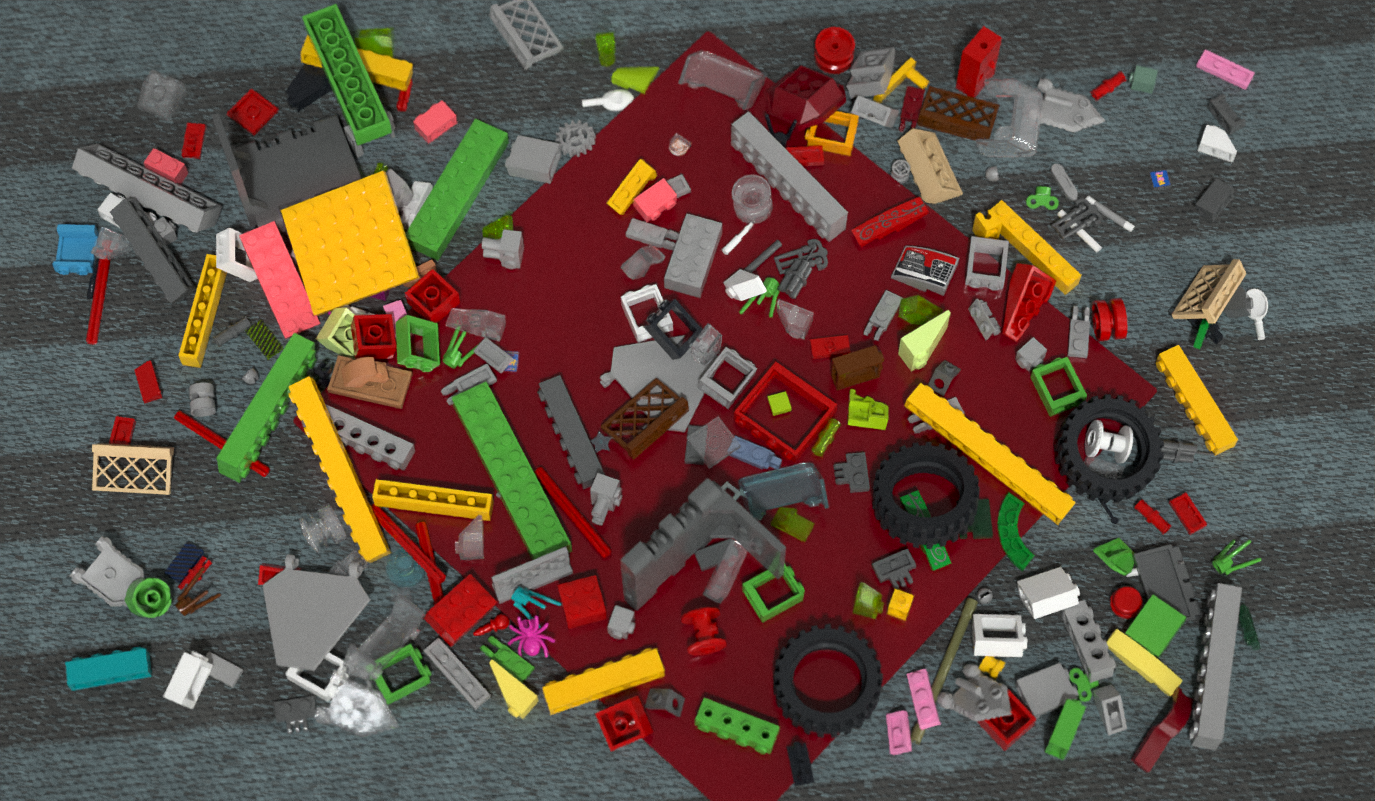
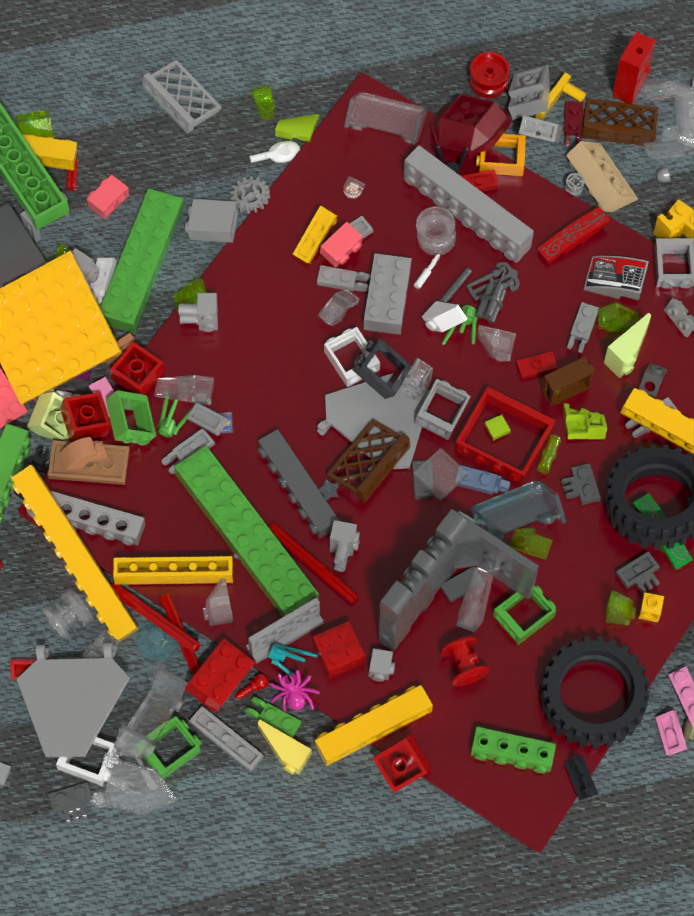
camera: 10 degrees left, 0 degrees up
(663, 700) = (436, 734): dark grey bracket -> none

